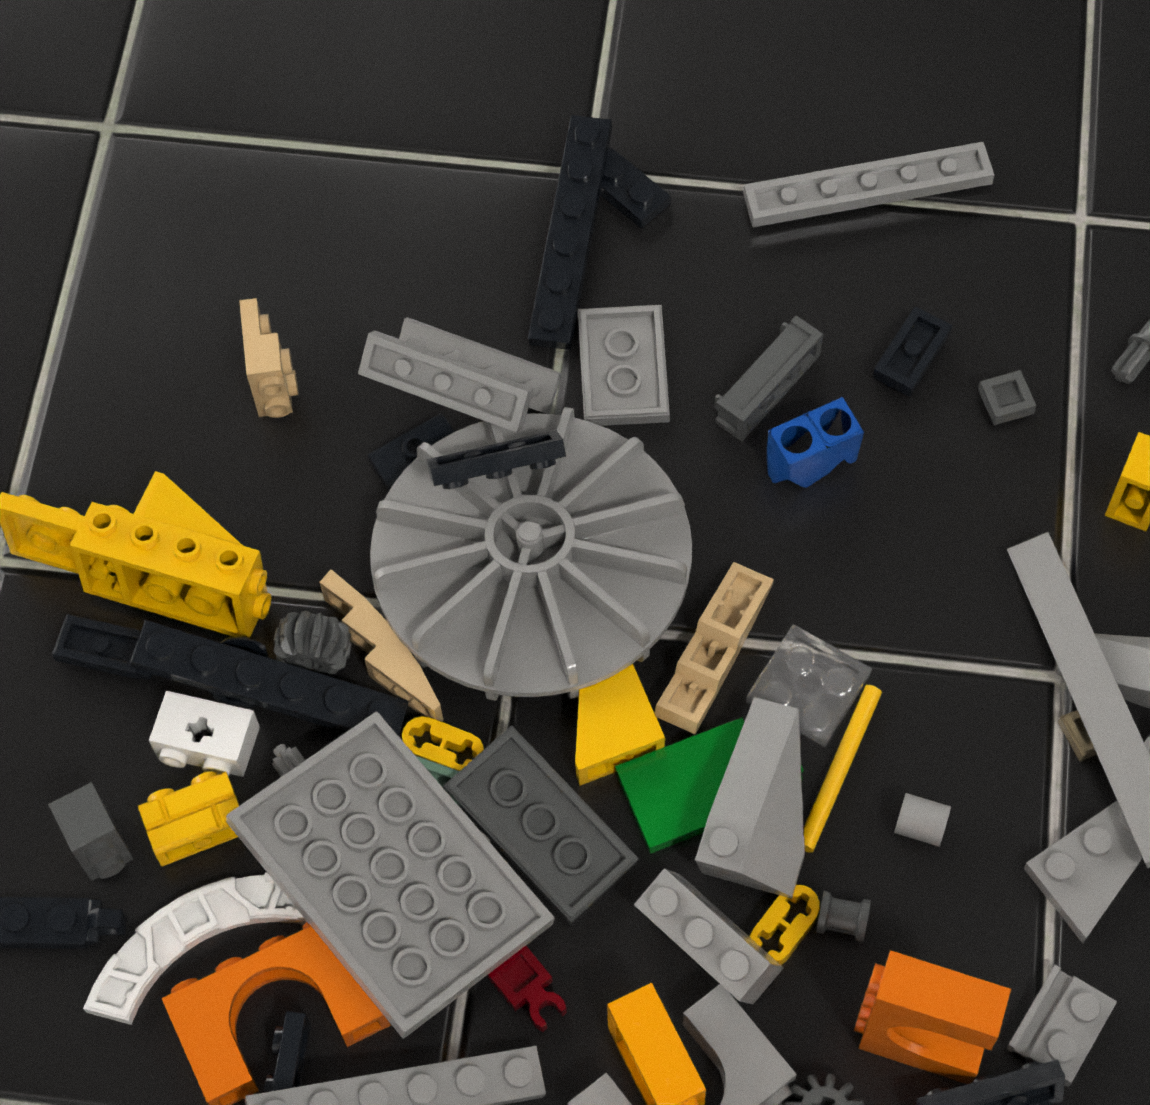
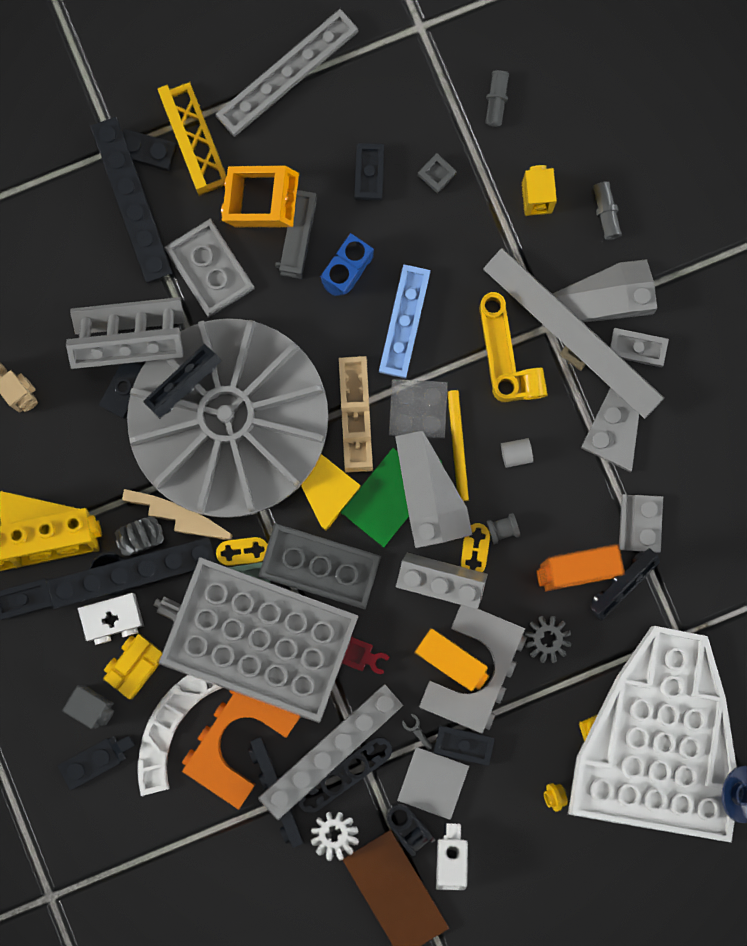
camera: 30 degrees left, 20 degrees up
(683, 195) = (182, 137): none -> yellow fence
(758, 332) = (282, 200): none -> light orange window
(854, 561) = (404, 321): none -> light blue plate
(989, 730) = (527, 383): none -> yellow piece

